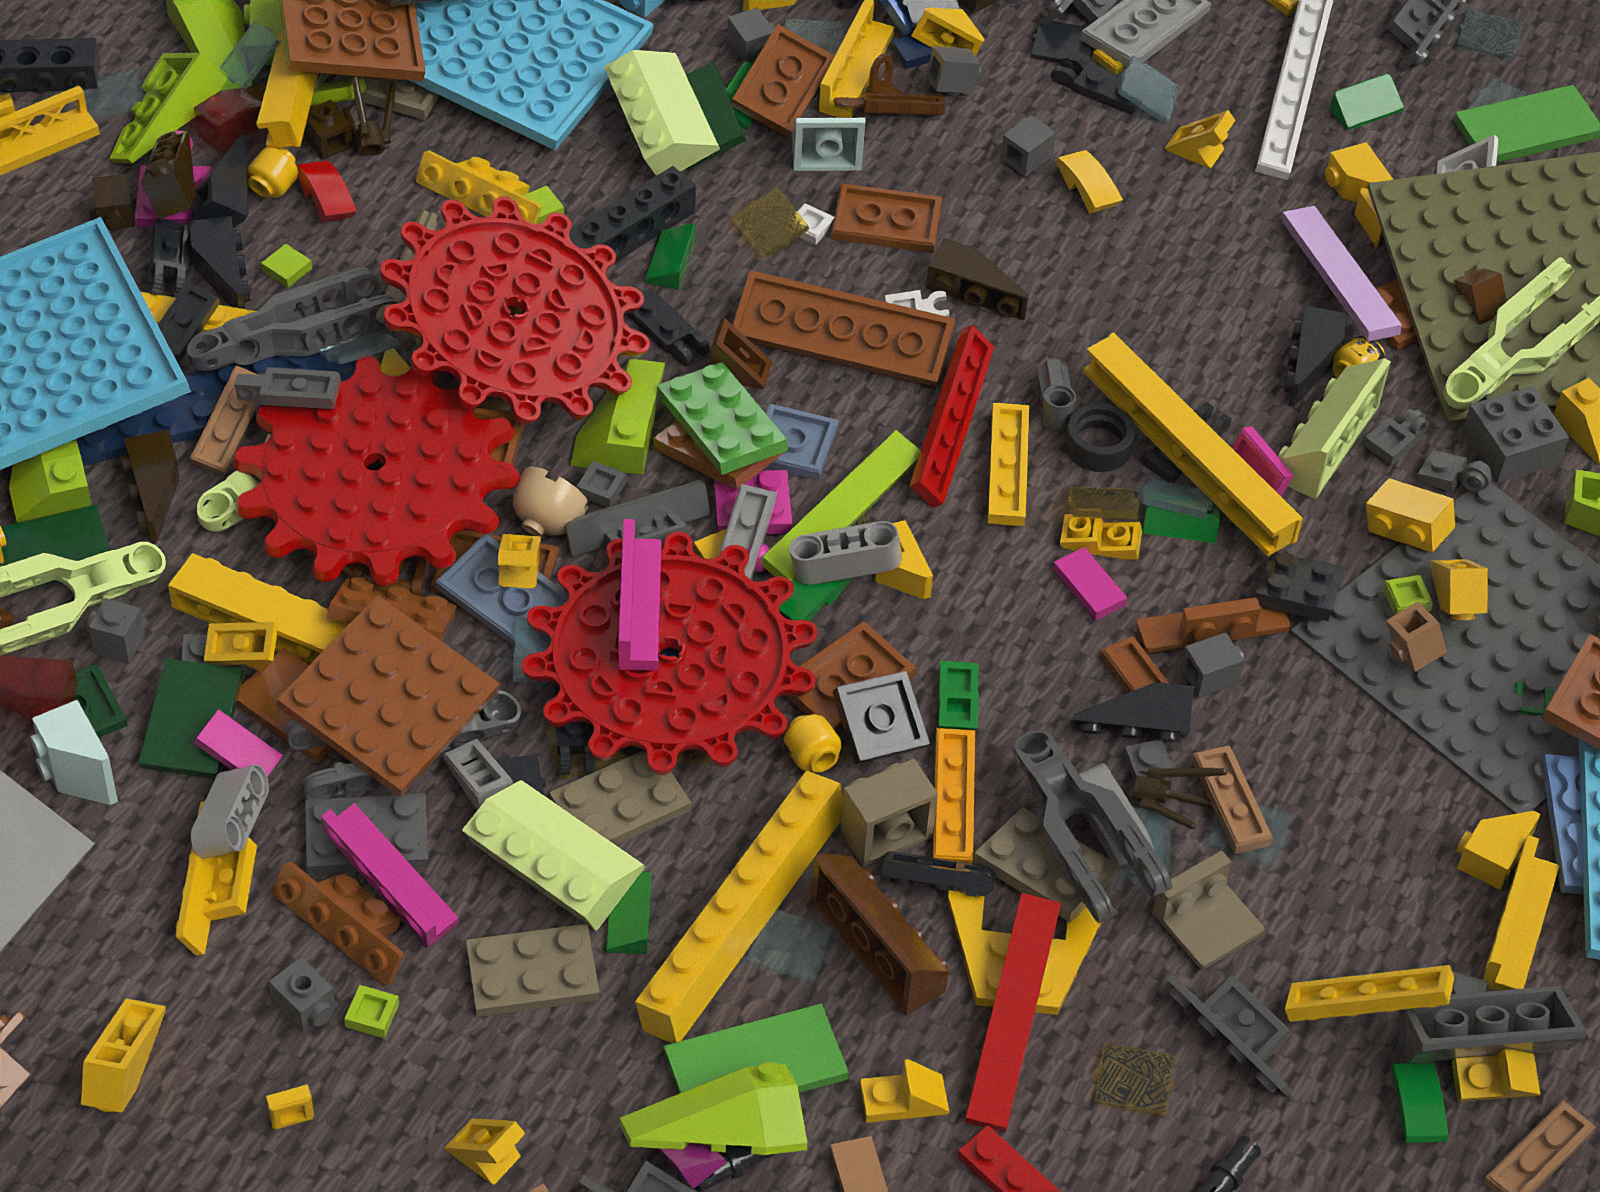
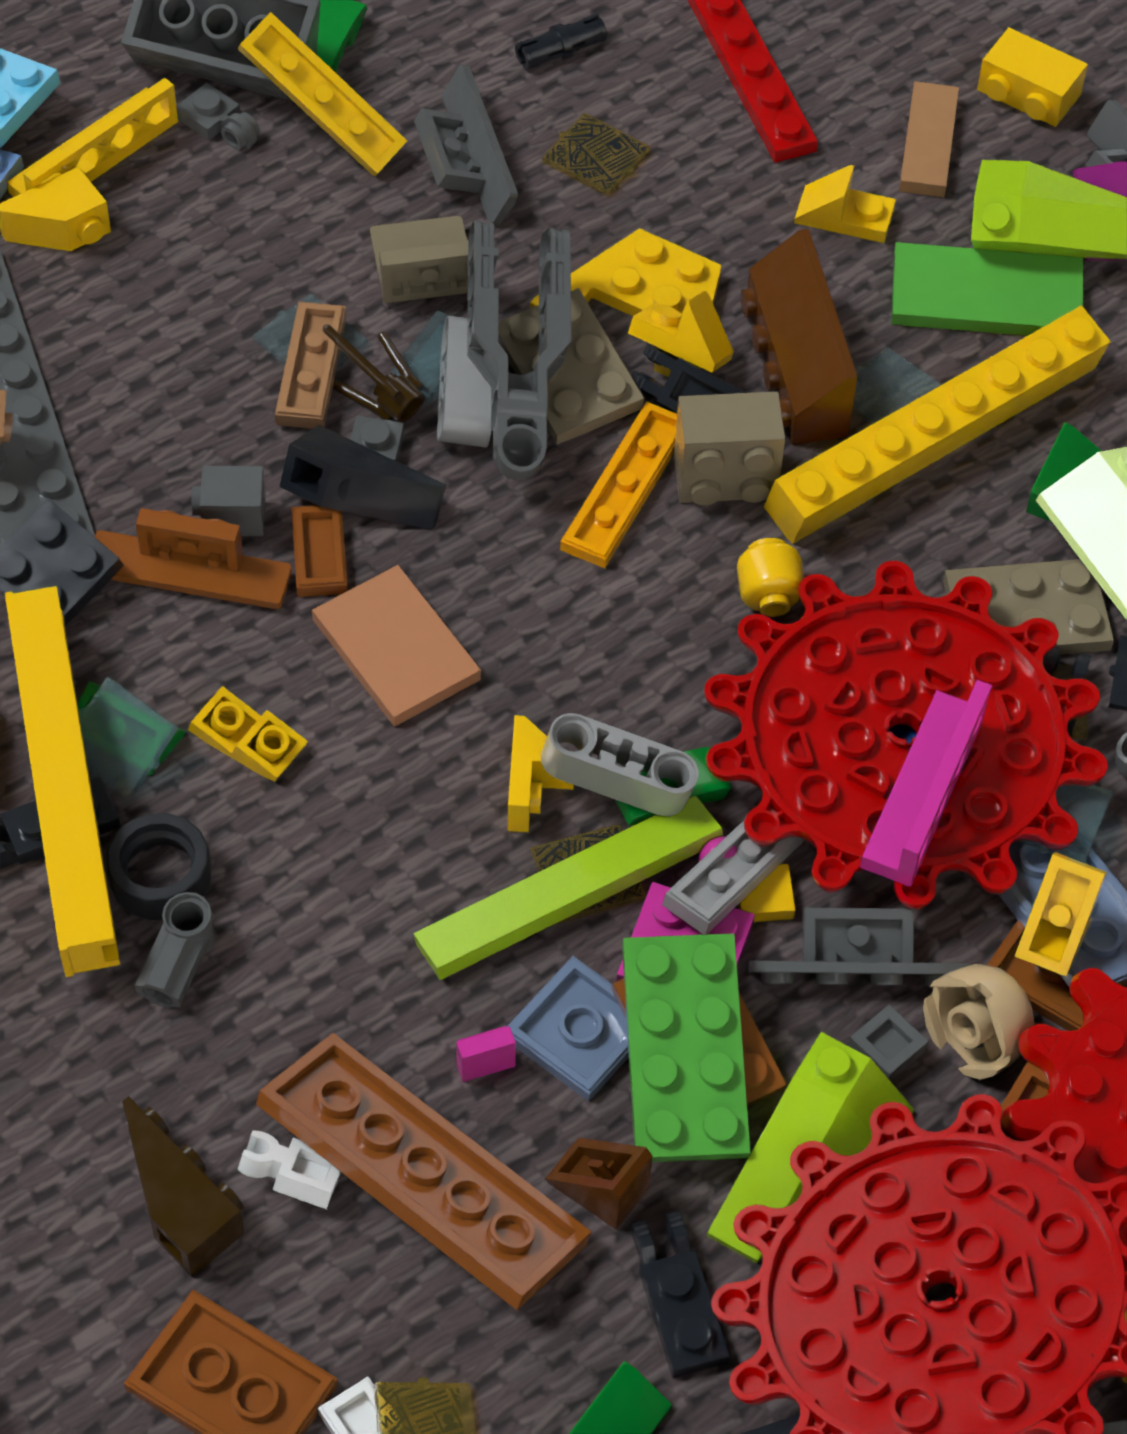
camera: 155 degrees left, 5 degrees up
(841, 398) = (485, 1053): none -> dark pink tile
(850, 659) = (672, 652): dark orange plate -> none
(880, 717) = (674, 574): plate -> none
(952, 417) = (328, 985): red plate -> none
(958, 695) = (556, 593): green slope -> none
(970, 899) = (693, 337): none -> yellow slope
(1008, 464) = (306, 875): yellow plate -> none
(1013, 1013) = (692, 226): red tile -> none
(1044, 626) = (396, 645): none -> nougat tile
(1090, 583) = (303, 679): dark pink tile -> none
(1103, 502) = (219, 767): clear yellow piece -> none

